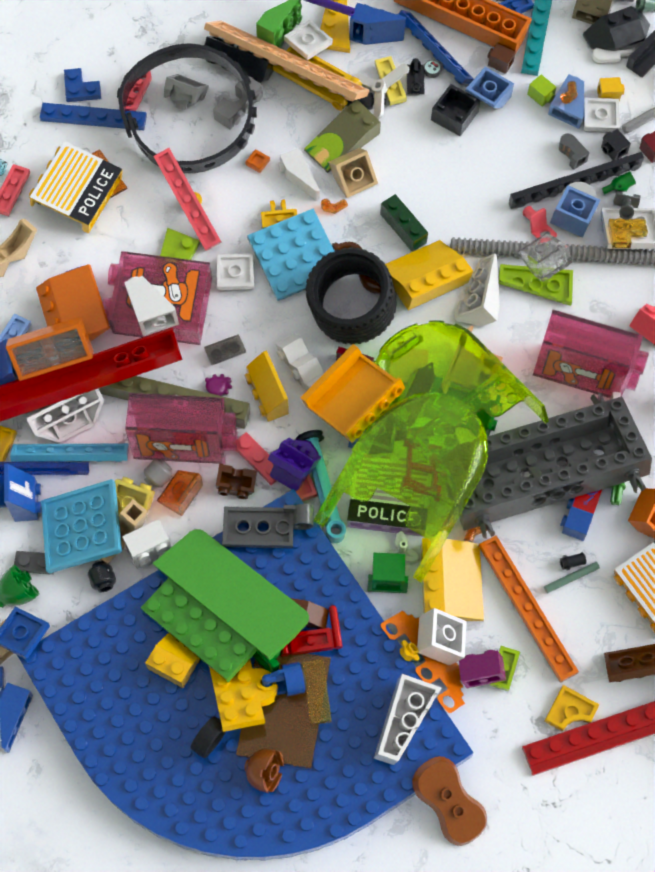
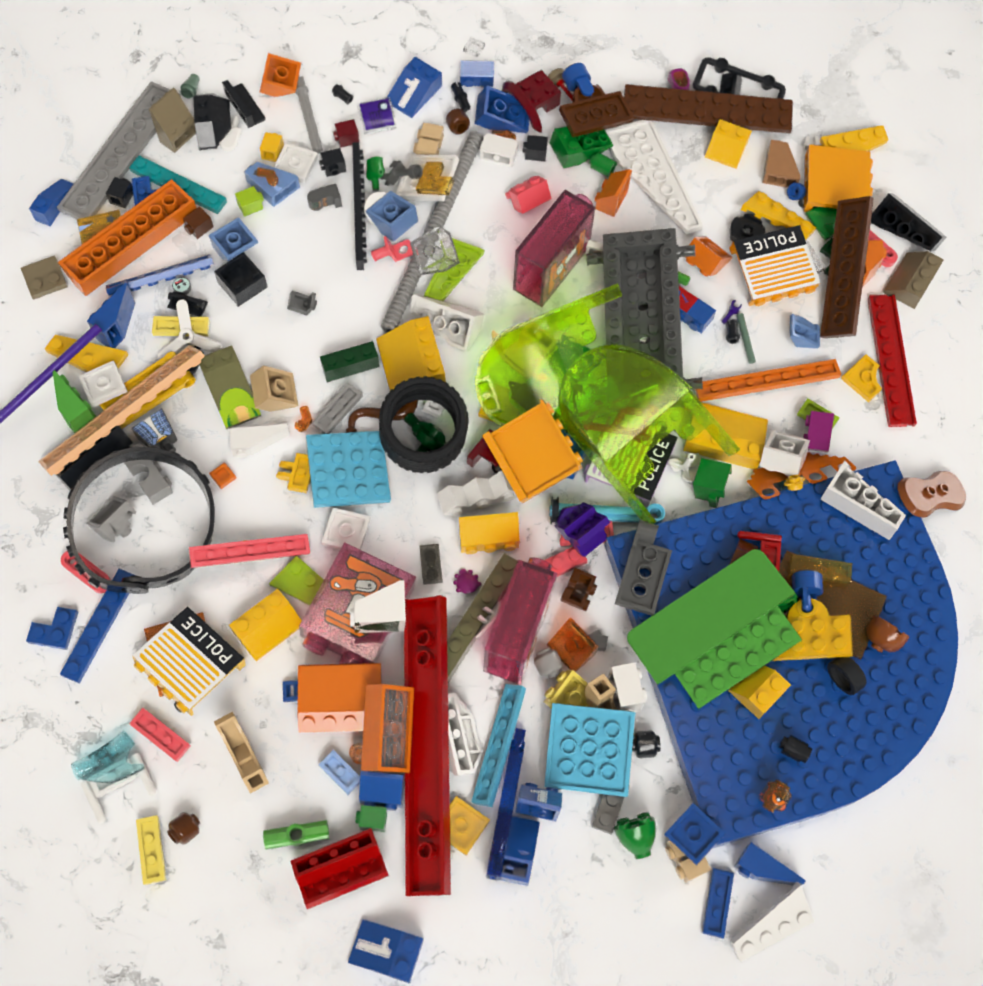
camera: 75 degrees left, 0 degrees up
(71, 695) = (775, 796): none -> clear orange head
(123, 705) = (795, 748): none -> black brick
(126, 233) = (266, 625): none -> yellow slope
(193, 512) = (599, 639): none -> dark grey piece
(279, 97) = (156, 432): none -> torso
(352, 229) = (337, 409): none -> light grey plate
(354, 304) = (427, 433): none -> dark green pin
(451, 166) = (301, 303): none -> dark grey bracket
(598, 556) = (732, 310): none -> dark purple hand
(601, 632) = (804, 333): none -> medium blue slope

